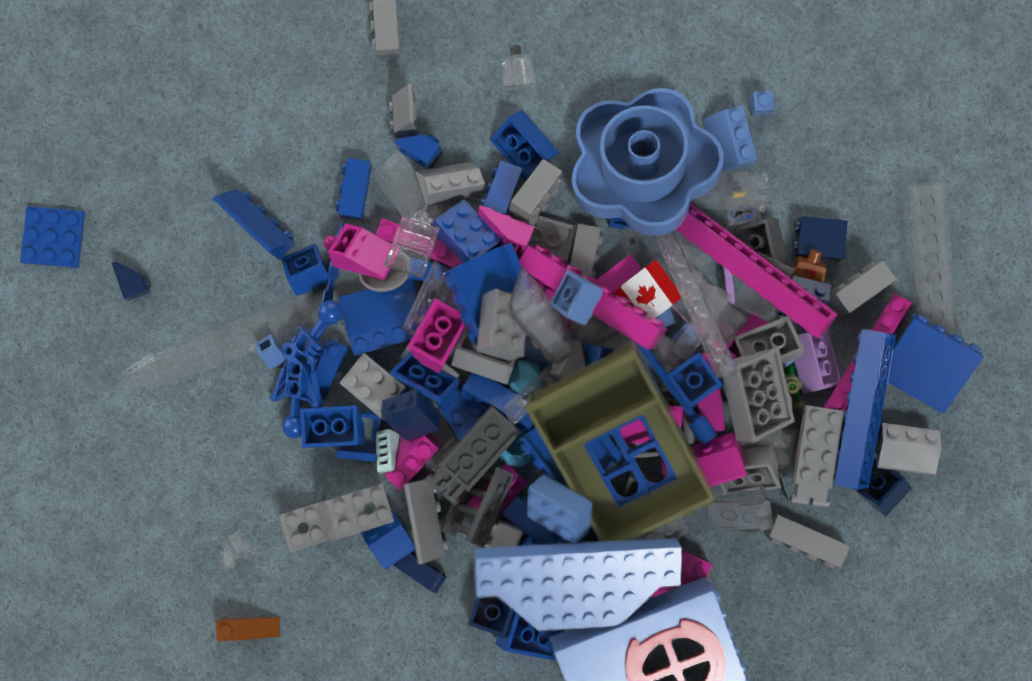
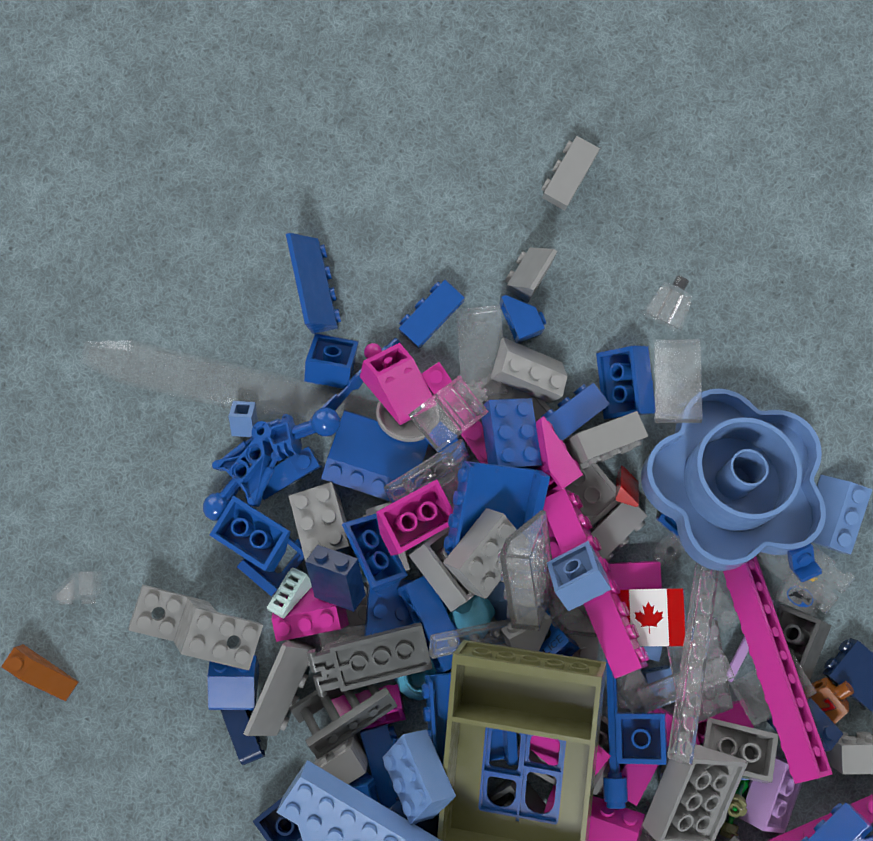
camera: 40 degrees right, 0 degrees up
(52, 237) = (111, 166): blue plate -> none
(131, 282) = (155, 259): dark blue slope -> none
(558, 120) = (678, 381): none -> clear tile
(573, 218) = (627, 488): none -> red slope
(726, 186) = (803, 563): none -> blue bracket

